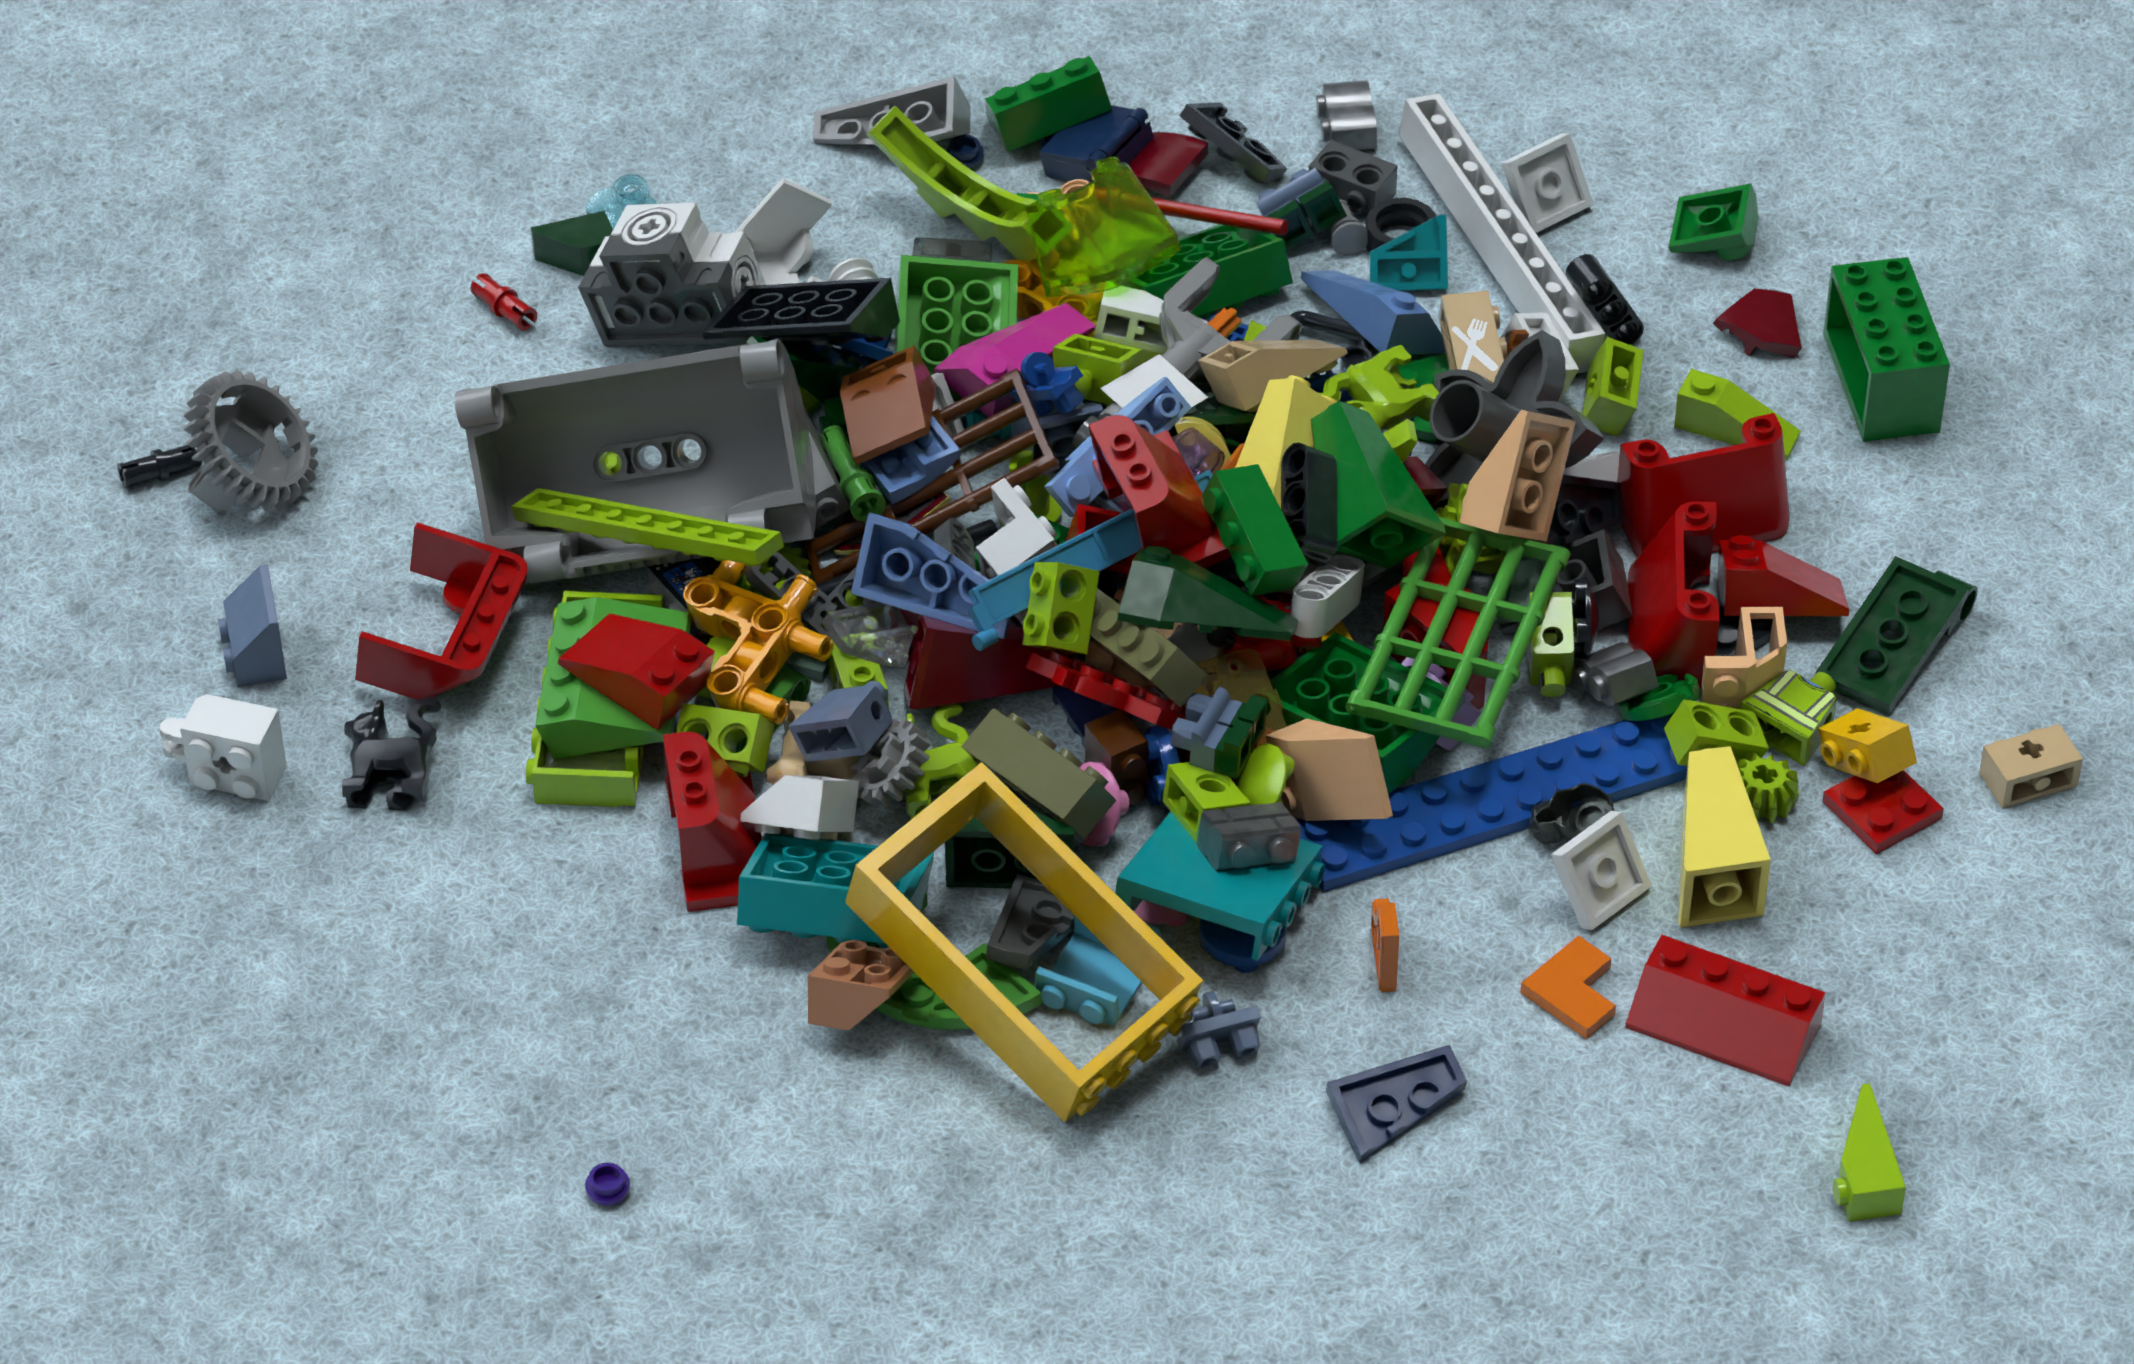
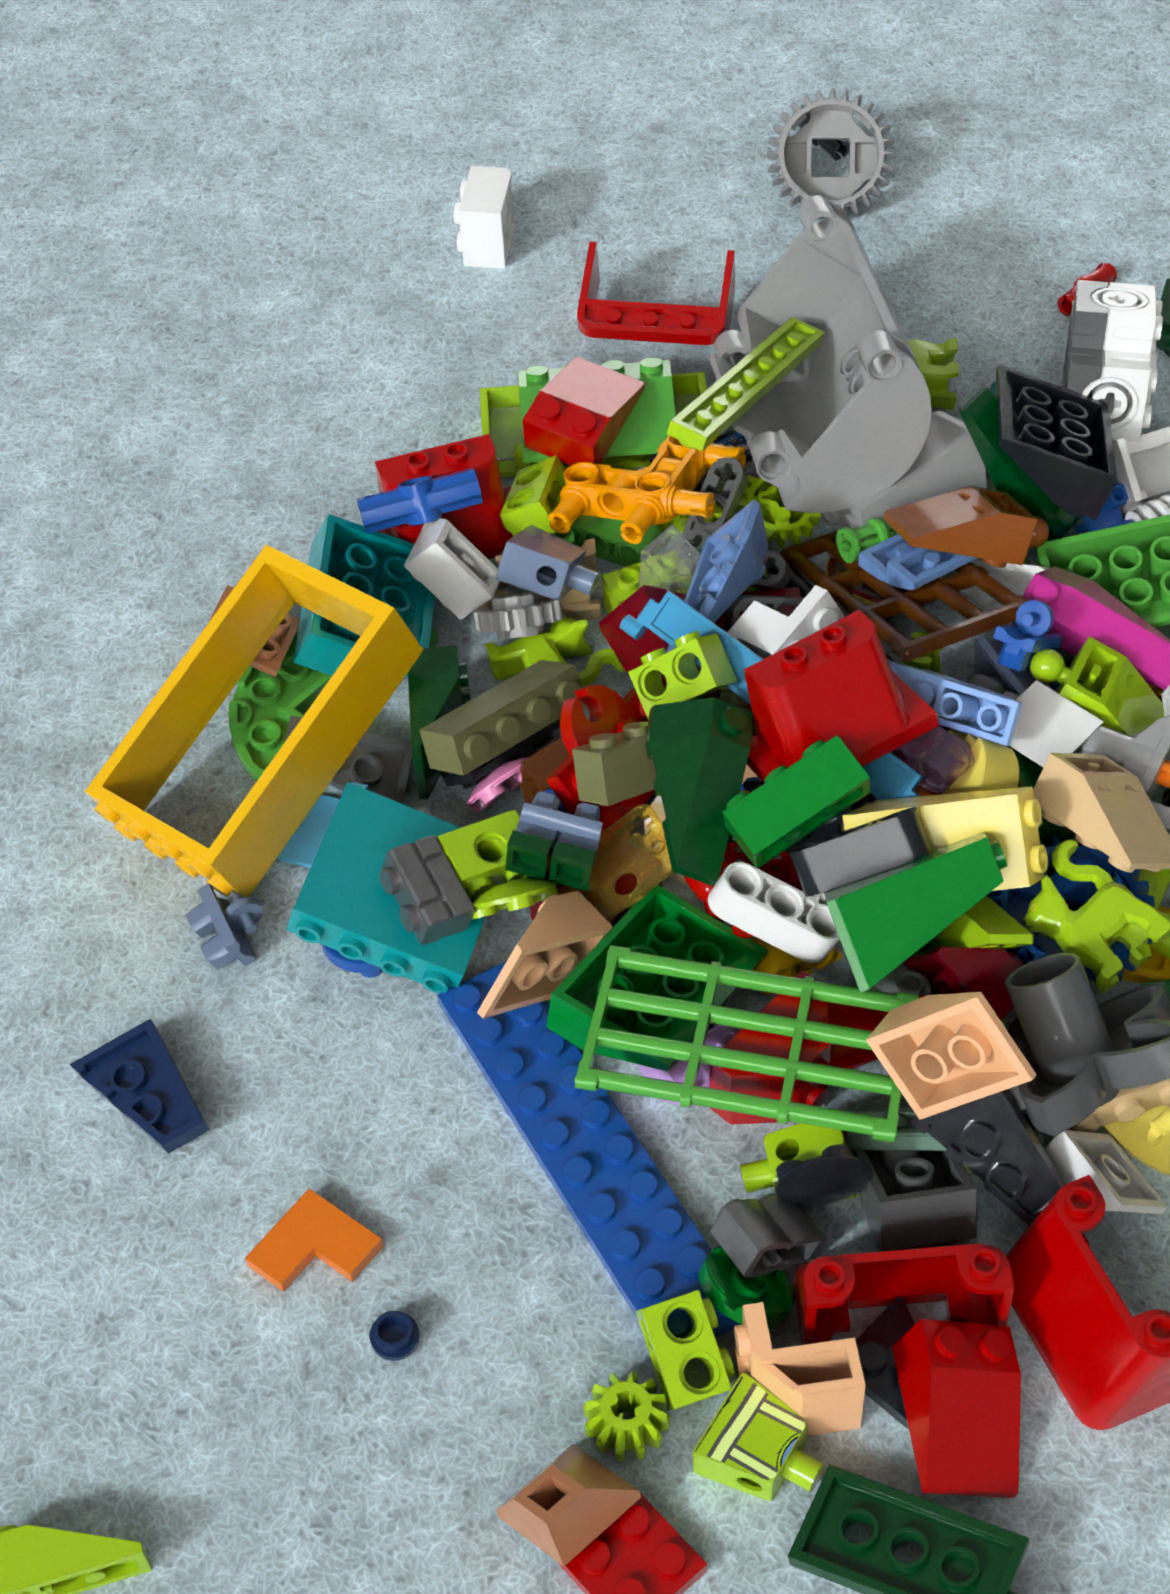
camera: 85 degrees right, 5 degrees up
(252, 632) = (628, 212): sand blue slope -> none
(389, 760) = (499, 312): black animal -> none
(607, 1184) = (45, 524): dark purple plate -> none
(744, 799) = (419, 500): none -> blue piece
(1385, 943) = (337, 1047): orange tile -> none
(1558, 820) = (548, 1216): pearl dark grey hair -> none
(1601, 870) = (455, 1241): white tile -> none
(1671, 926) = (394, 1335): none -> dark blue plate
(1721, 844) = (513, 1355): light yellow slope -> none
(1726, 1010) = (274, 1399): red slope -> none
(1839, 826) = (568, 1504): none -> nougat slope
(1867, 745) = (693, 1523): yellow brick -> none

